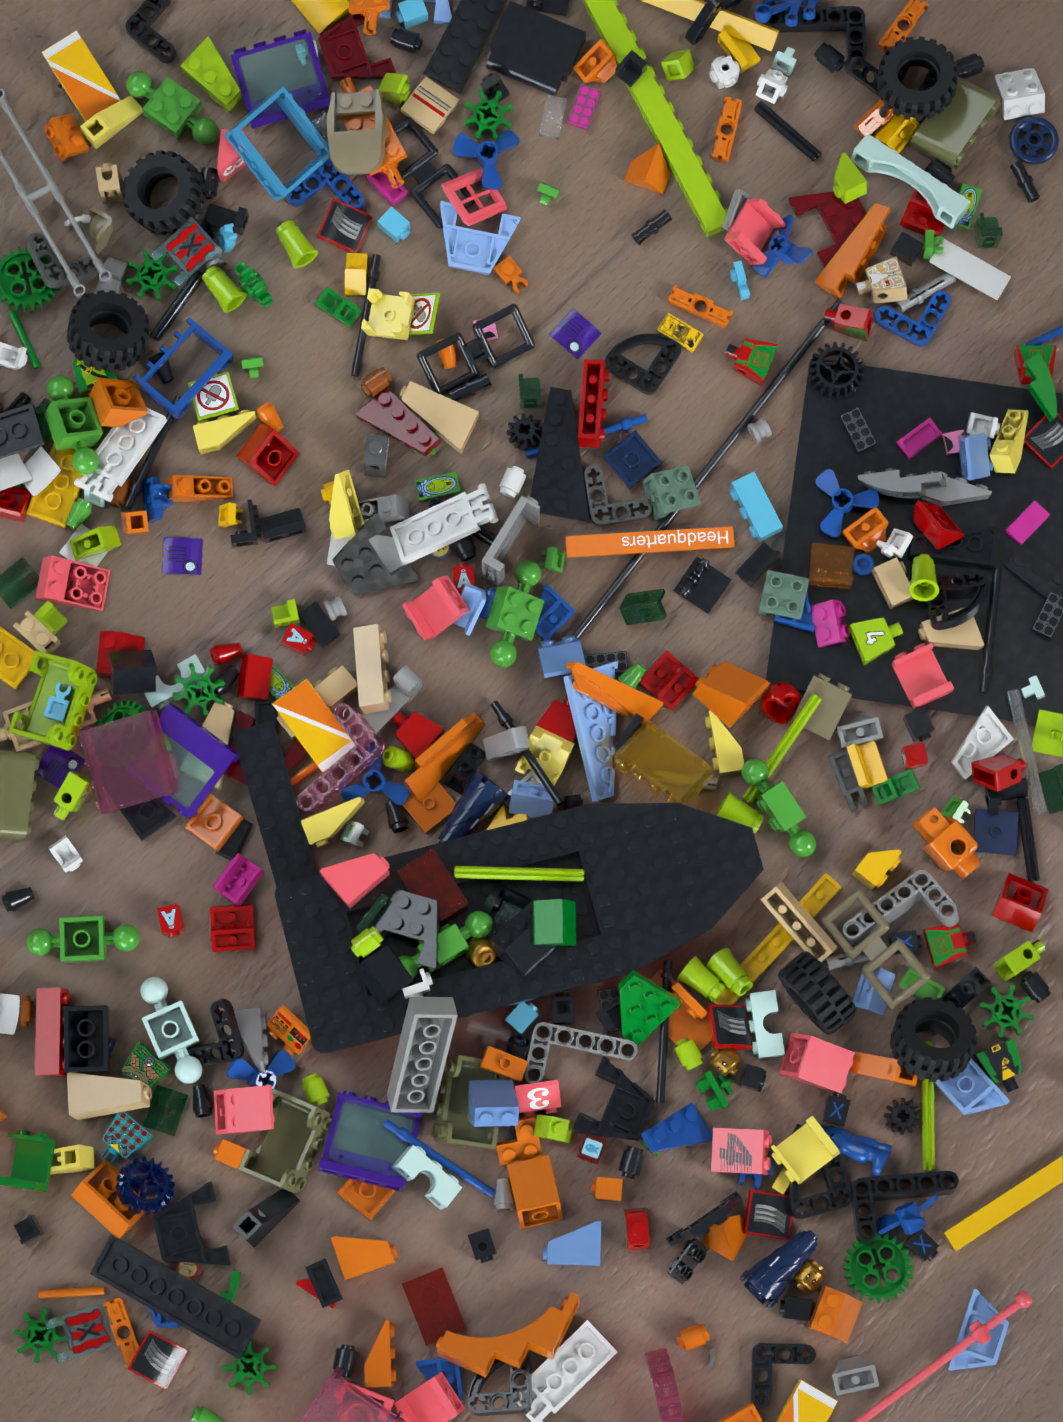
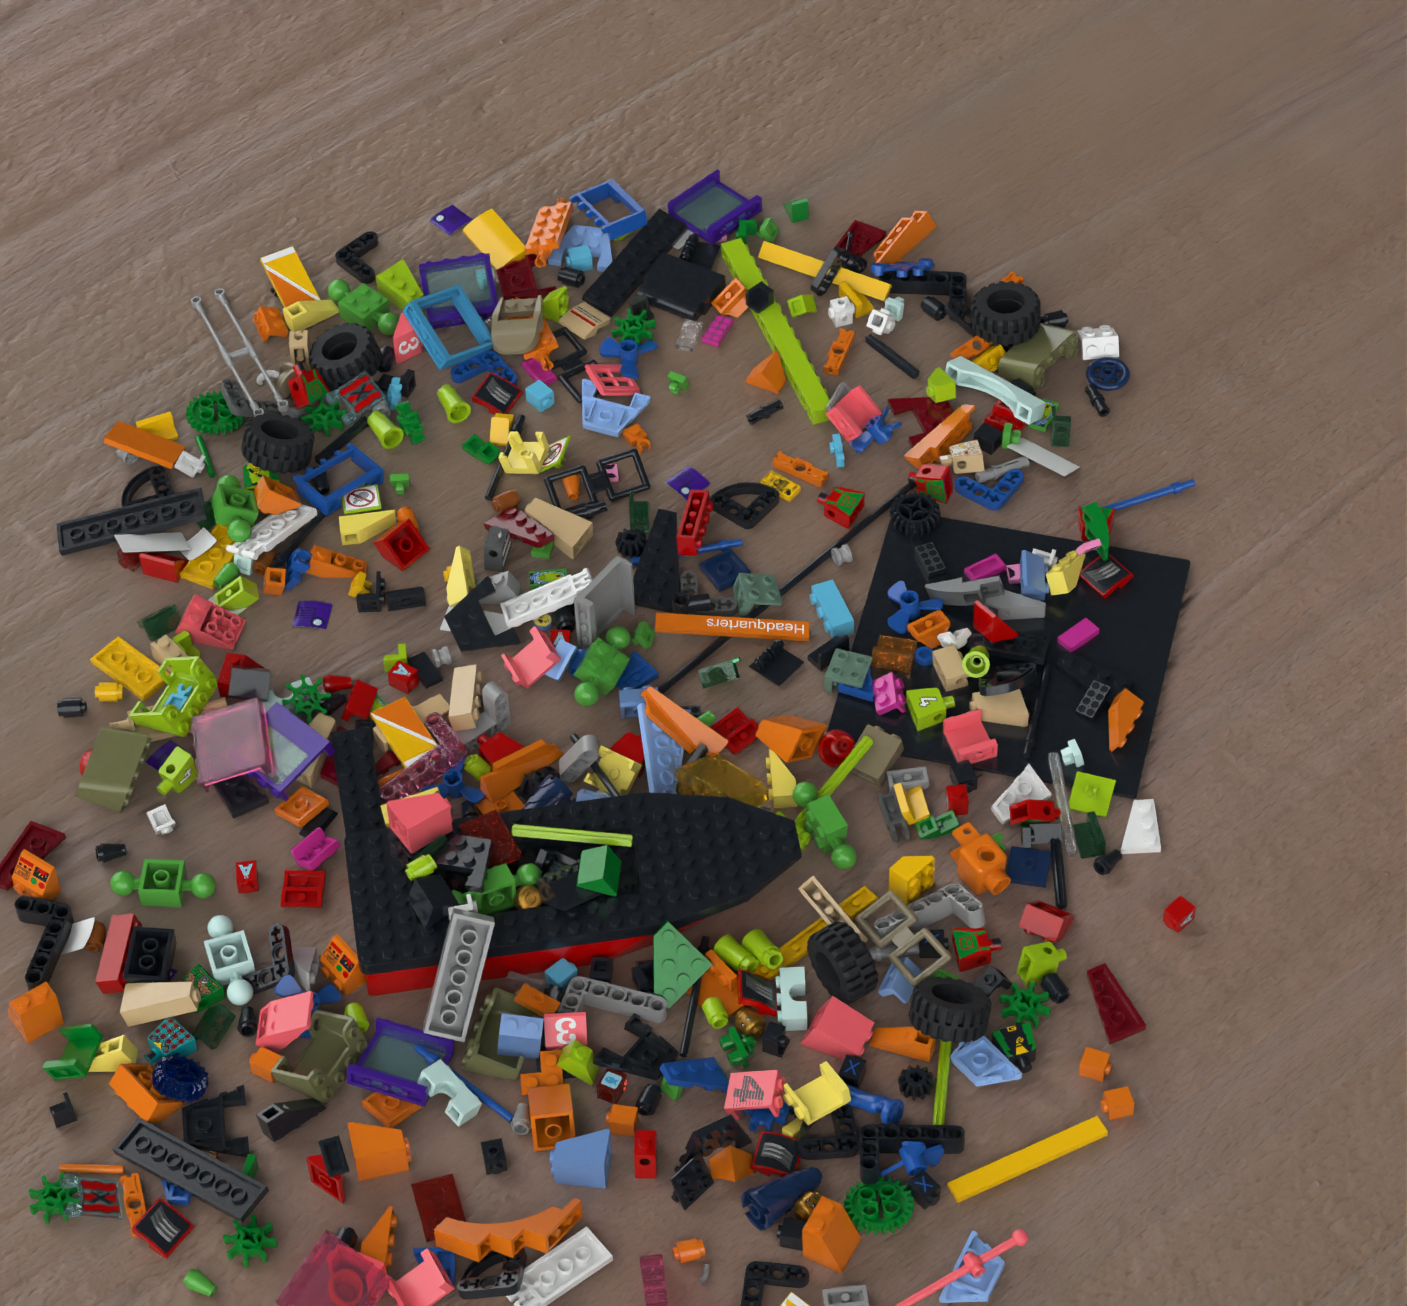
camera: 10 degrees right, 30 degrees down
(126, 241) = (306, 386): none -> red torso
(604, 517) = (684, 603): none -> black piece
(1034, 413) = (1088, 546): none -> bright pink tile

